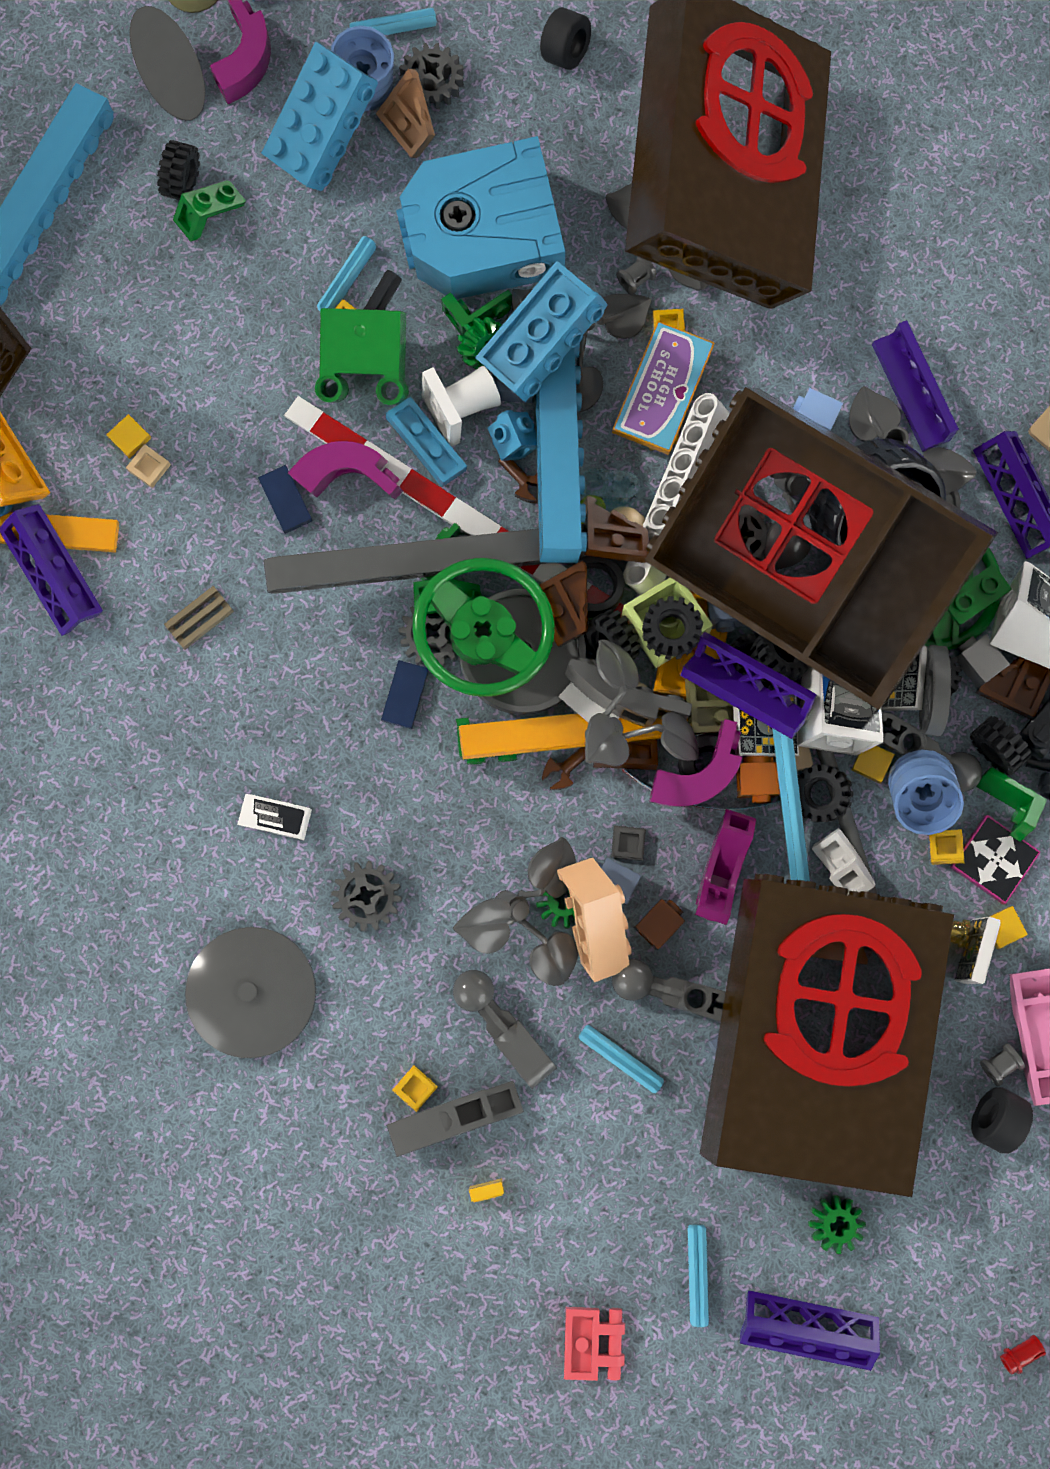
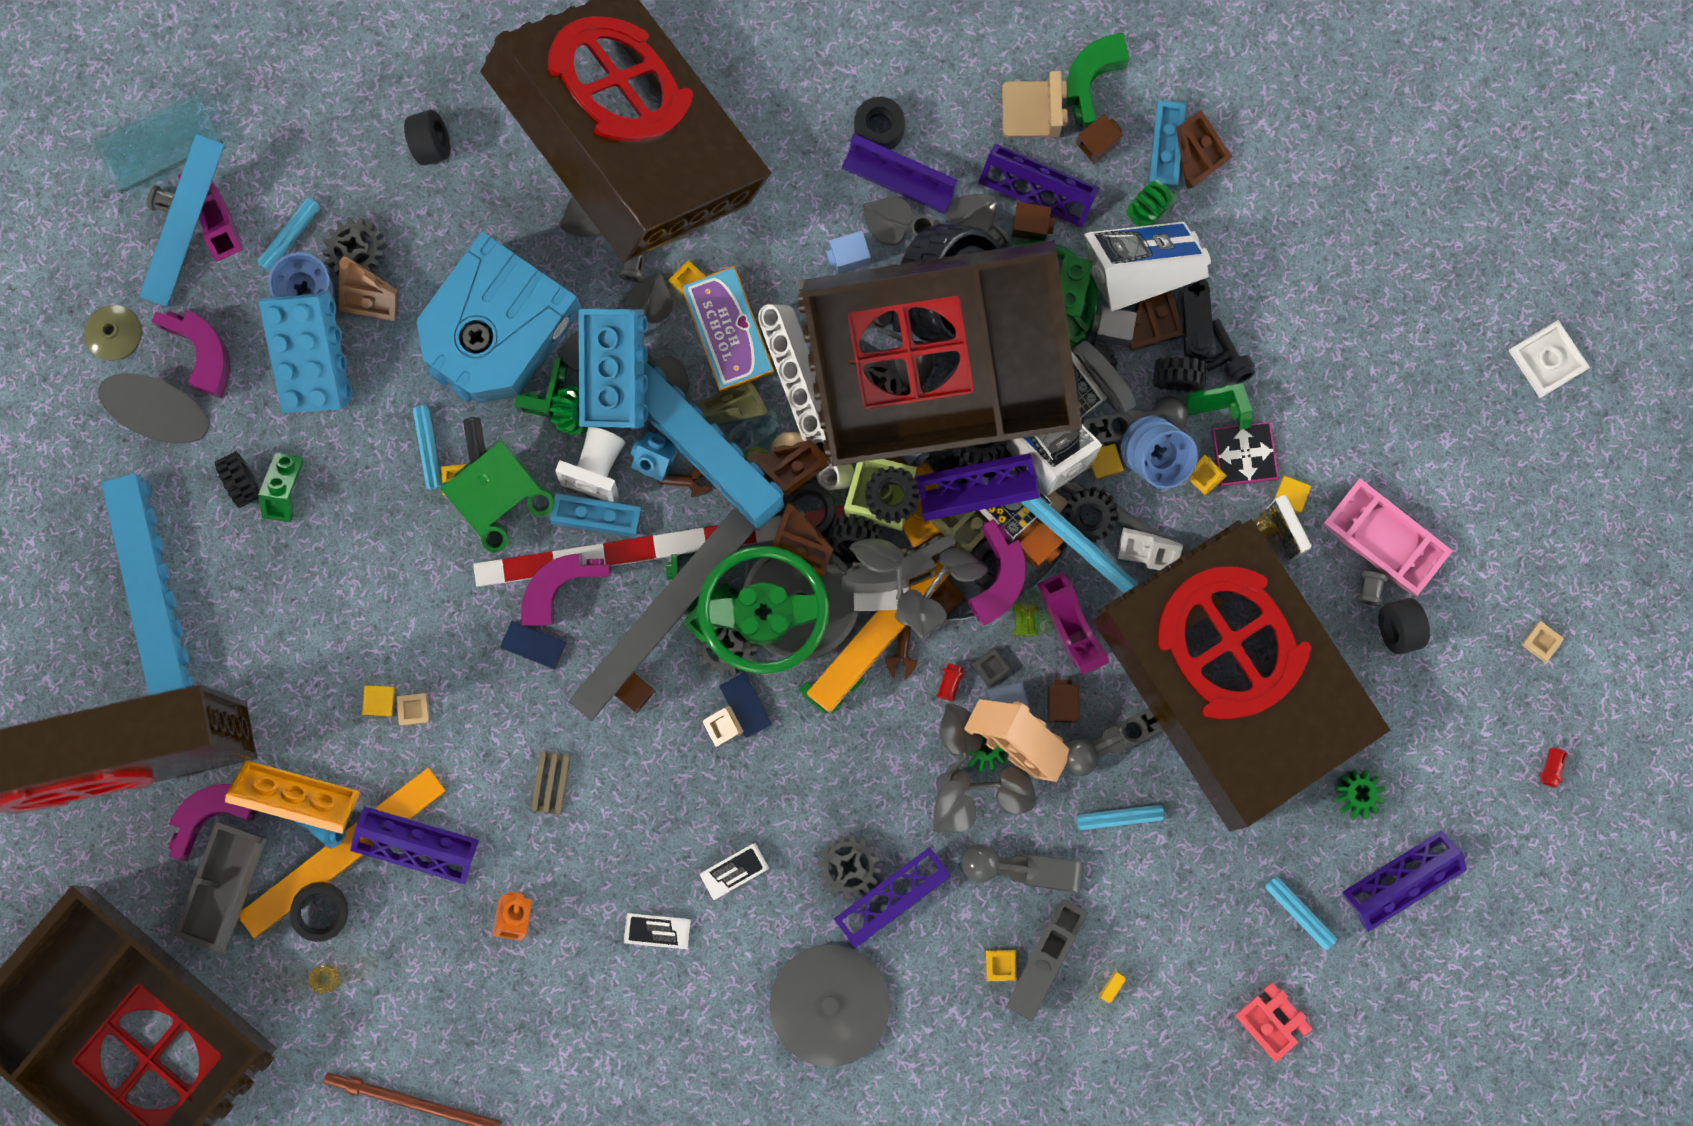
camera: 40 degrees left, 0 degrees up
(70, 692) = (512, 916): none -> orange brick
(171, 807) = (657, 931): none -> slope
(327, 605) = (635, 693): none -> reddish brown brick
(371, 694) = (722, 726): none -> tile
(374, 965) = (898, 907): none -> dark purple fence
(584, 824) = (950, 682): none -> red pin
(612, 450) = (733, 405): none -> olive wing
(689, 830) = (1021, 613): none -> clear neon green bush
(948, 321) = (885, 107): none -> black tyre
(992, 513) = (1032, 222): none -> reddish brown brick

